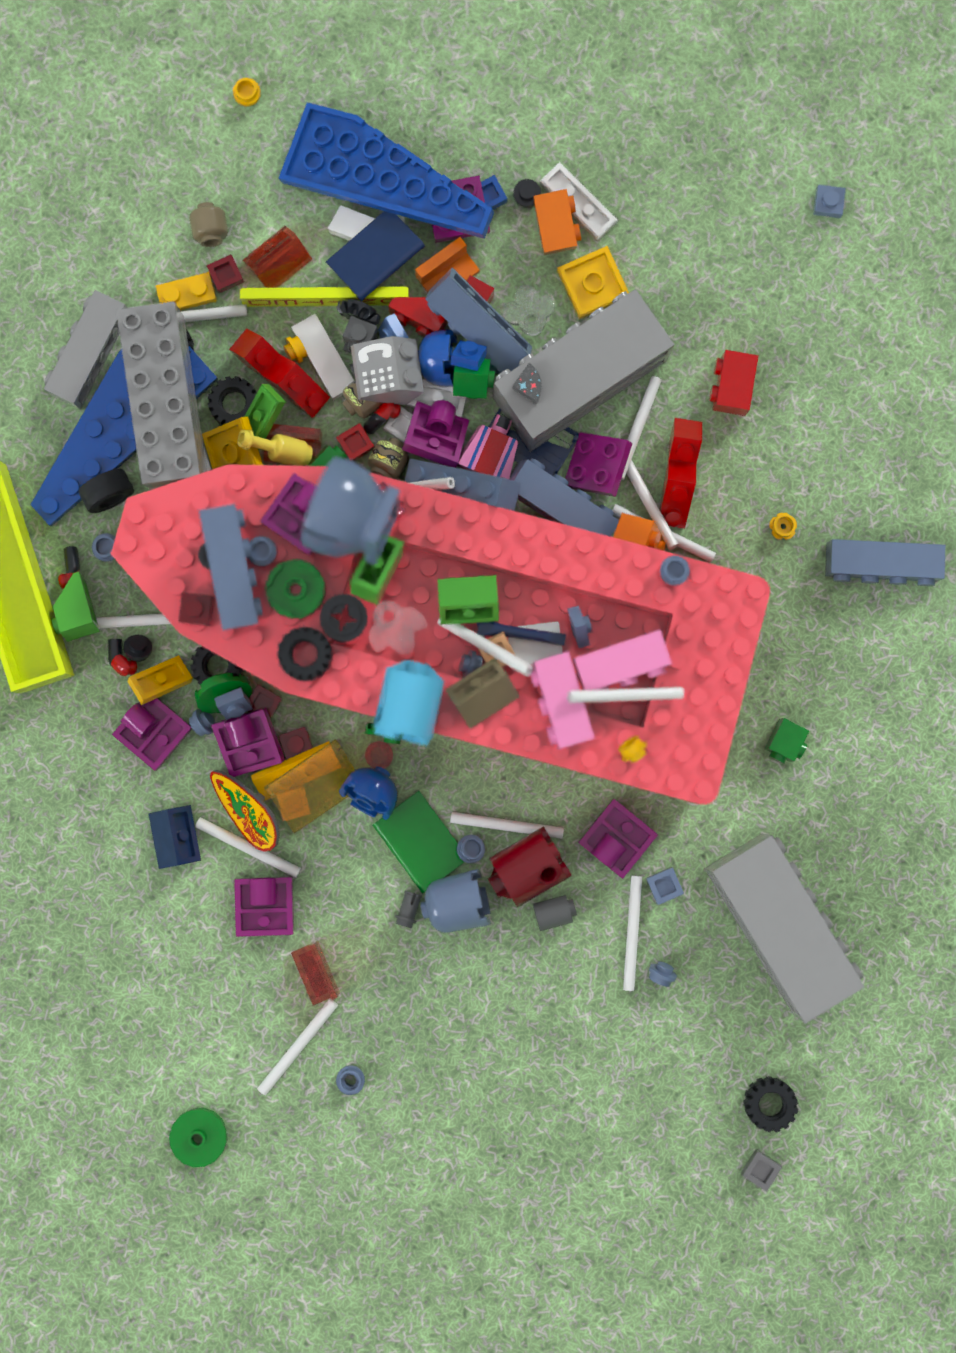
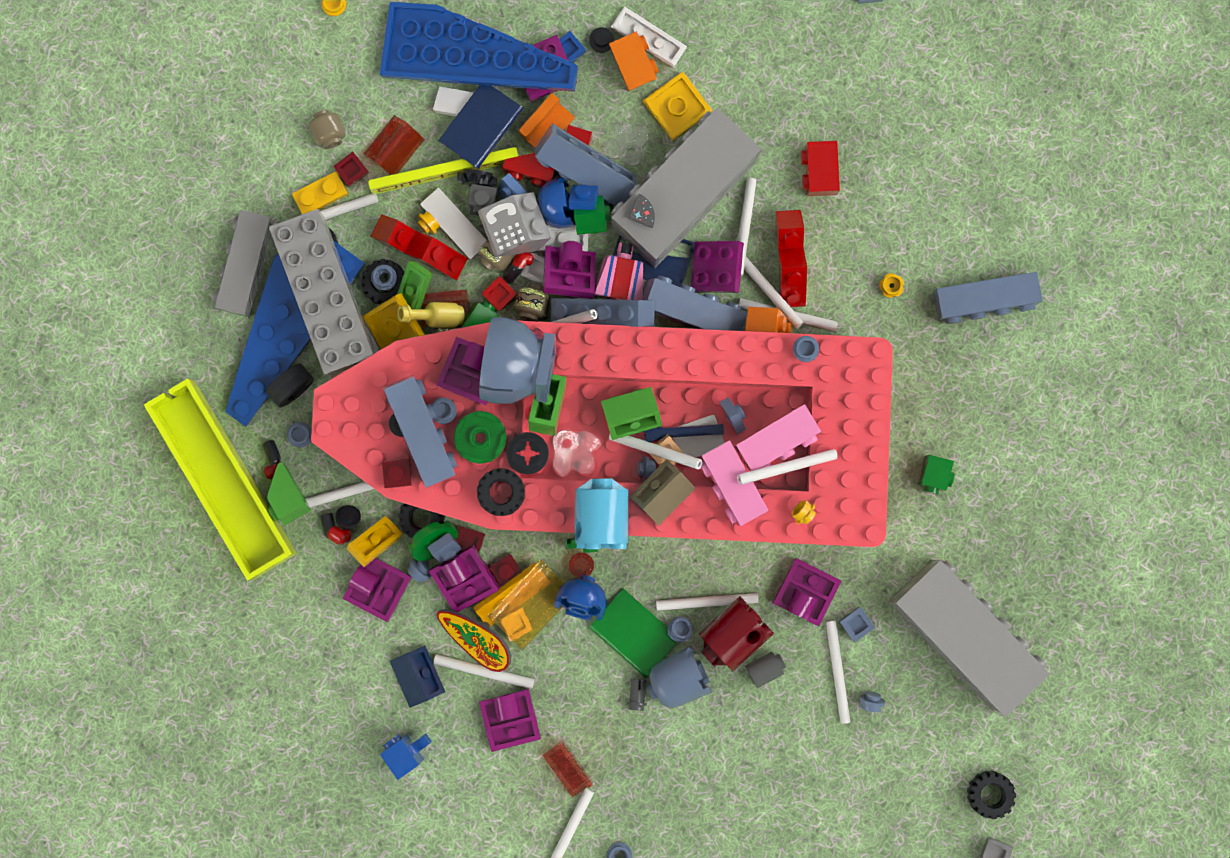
camera: 10 degrees left, 0 degrees up
(139, 917) = (403, 754): none -> blue brick
(227, 390) = (383, 269): none -> sand blue plate

